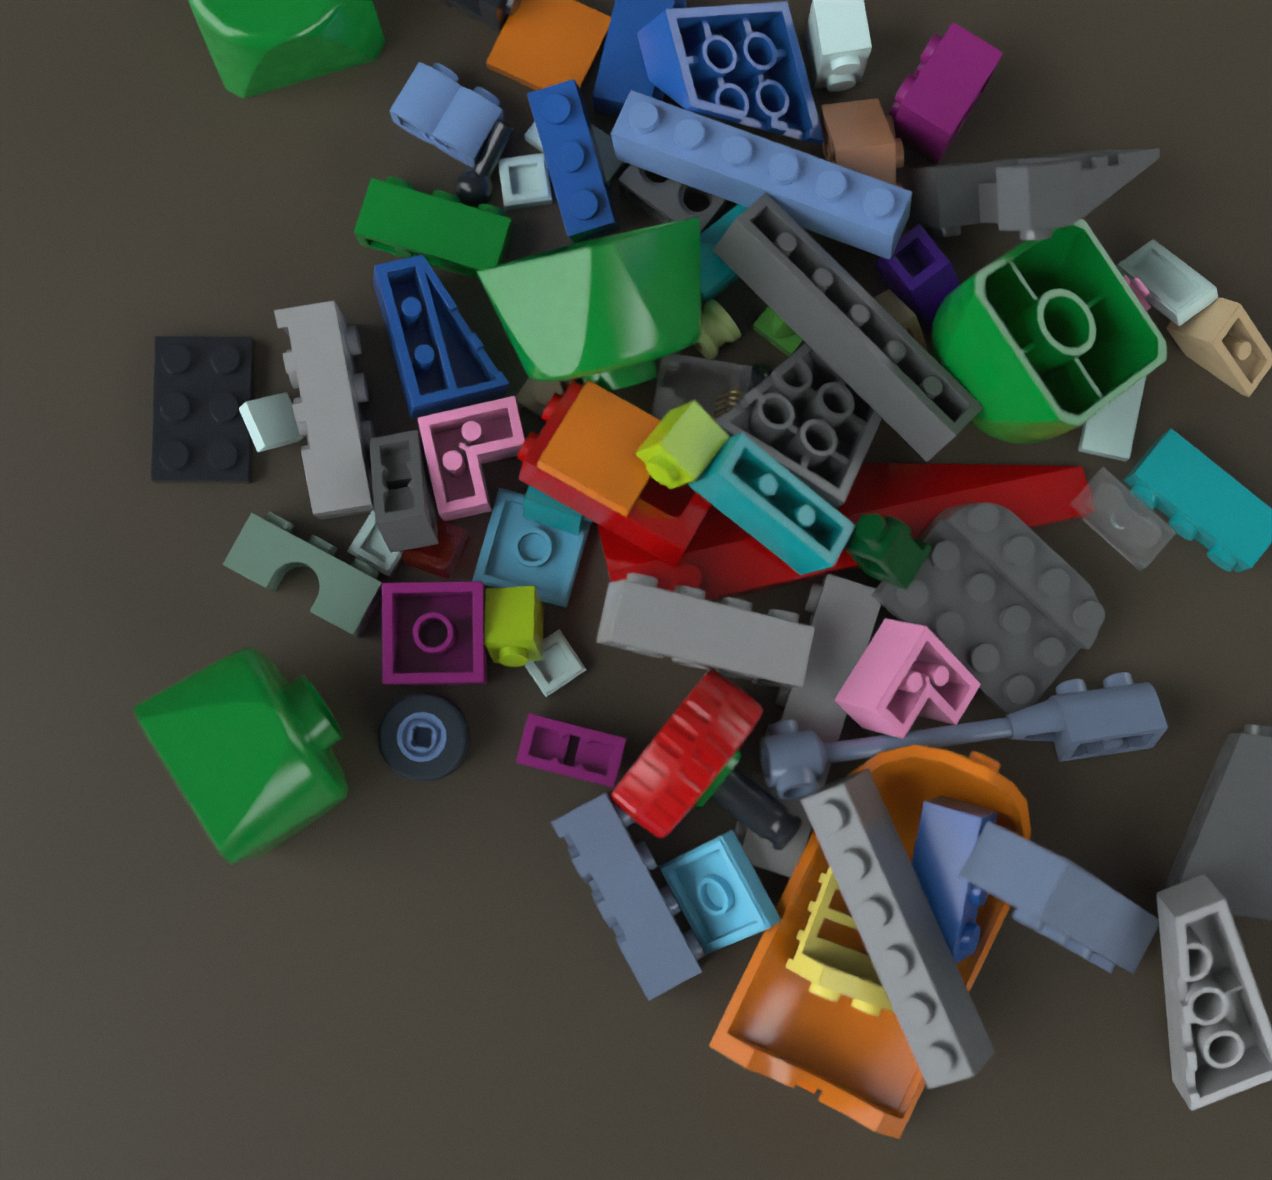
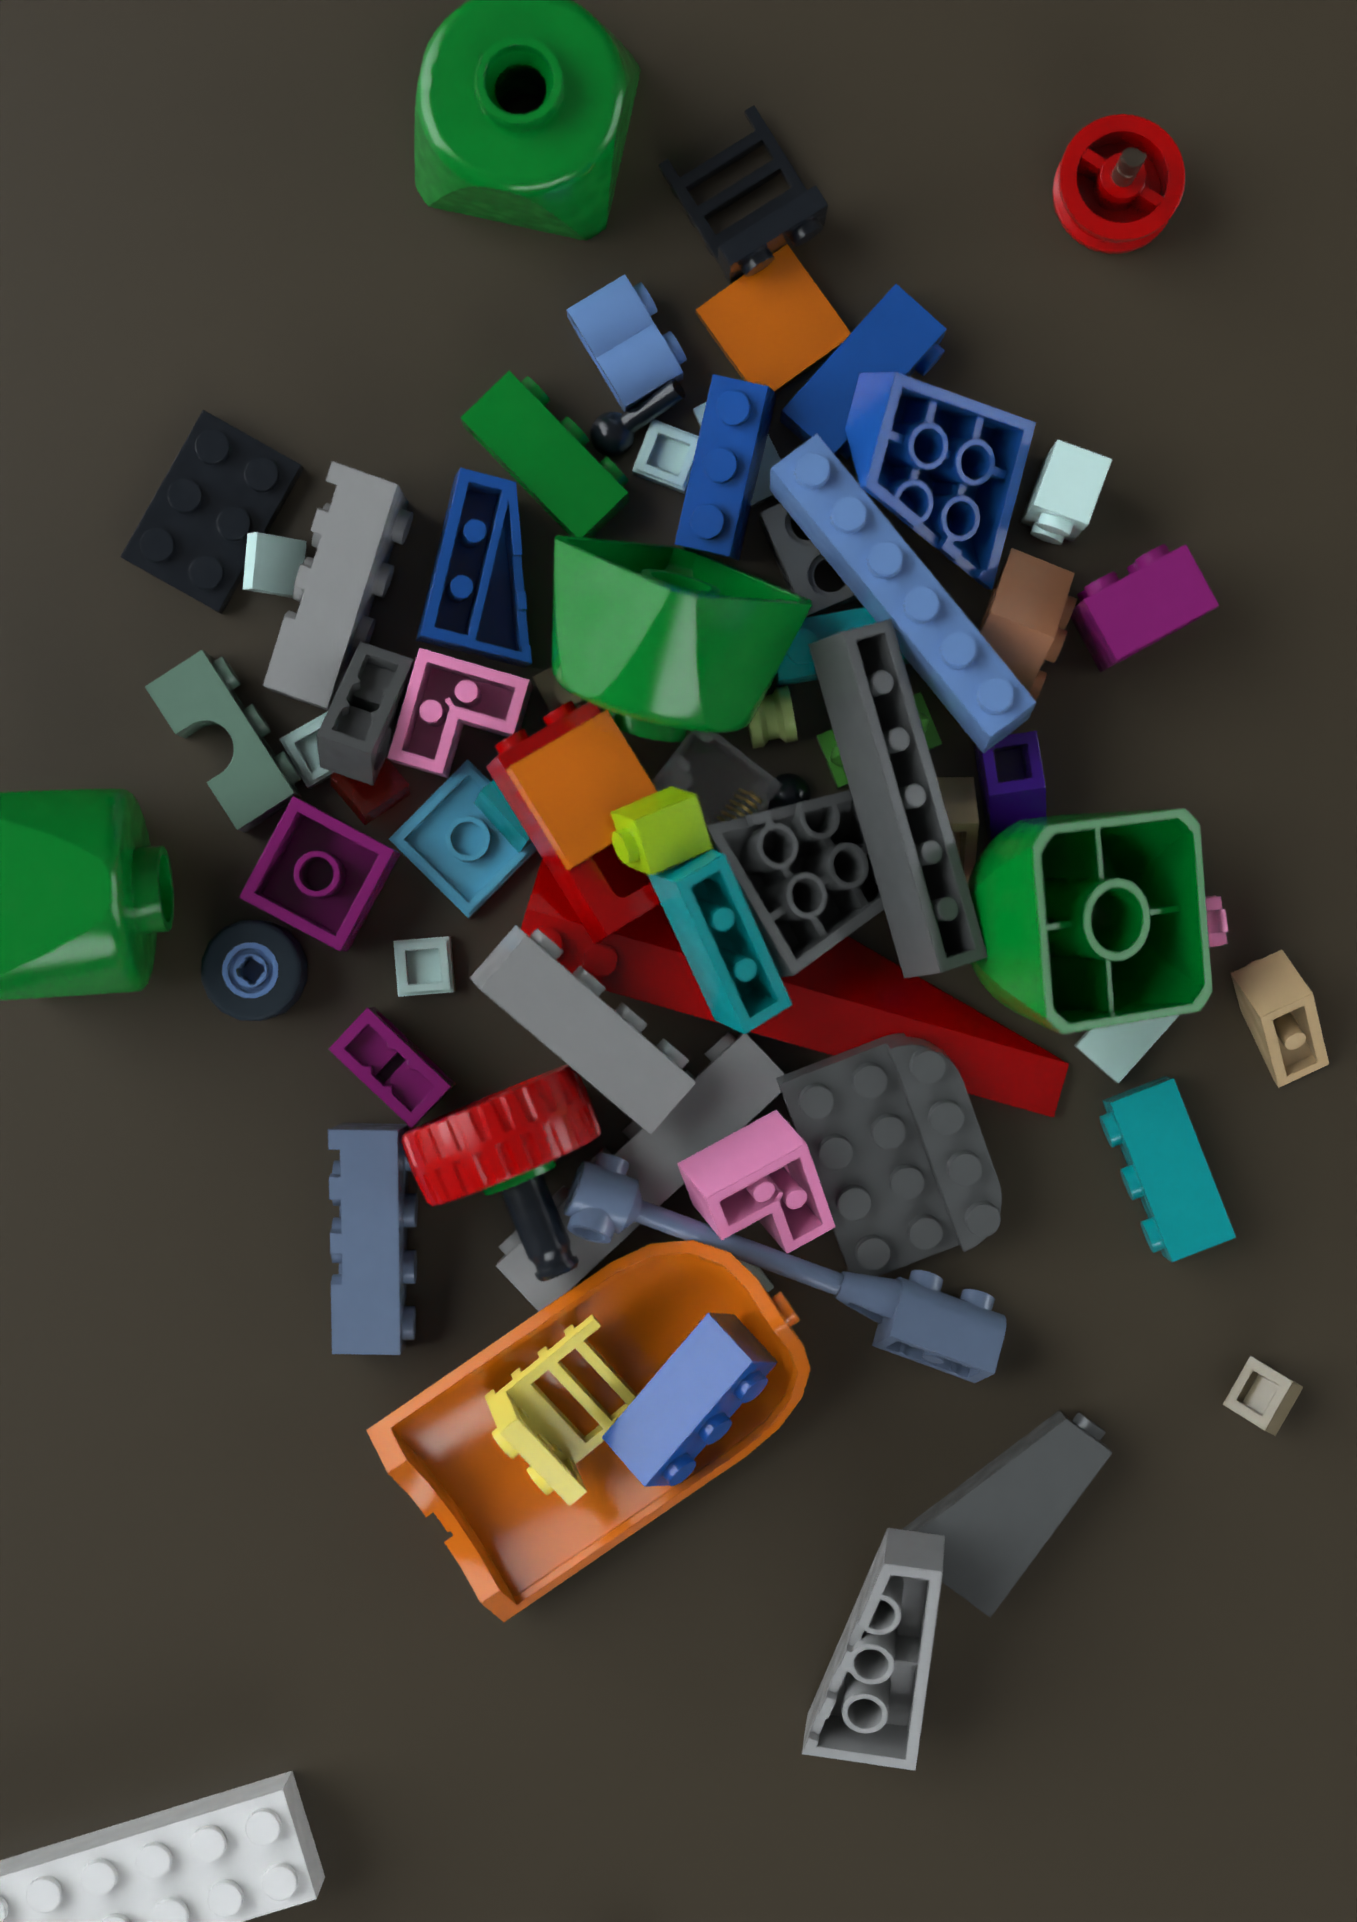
camera: 25 degrees right, 5 degrees up
(514, 625) = (404, 909): lime brick -> none
(719, 892) = (460, 1287): medium azure tile -> none
(886, 549) = (813, 1044): dark green brick -> none
(899, 929) = (611, 1421): brick -> none
(1022, 192) = (1161, 761): dark grey wedge -> none
(1060, 900) = (786, 1483): sand blue wedge -> none
(1122, 519) = (1076, 1139): clear plate -> none
(1172, 284) = (1258, 927): light aqua tile -> none

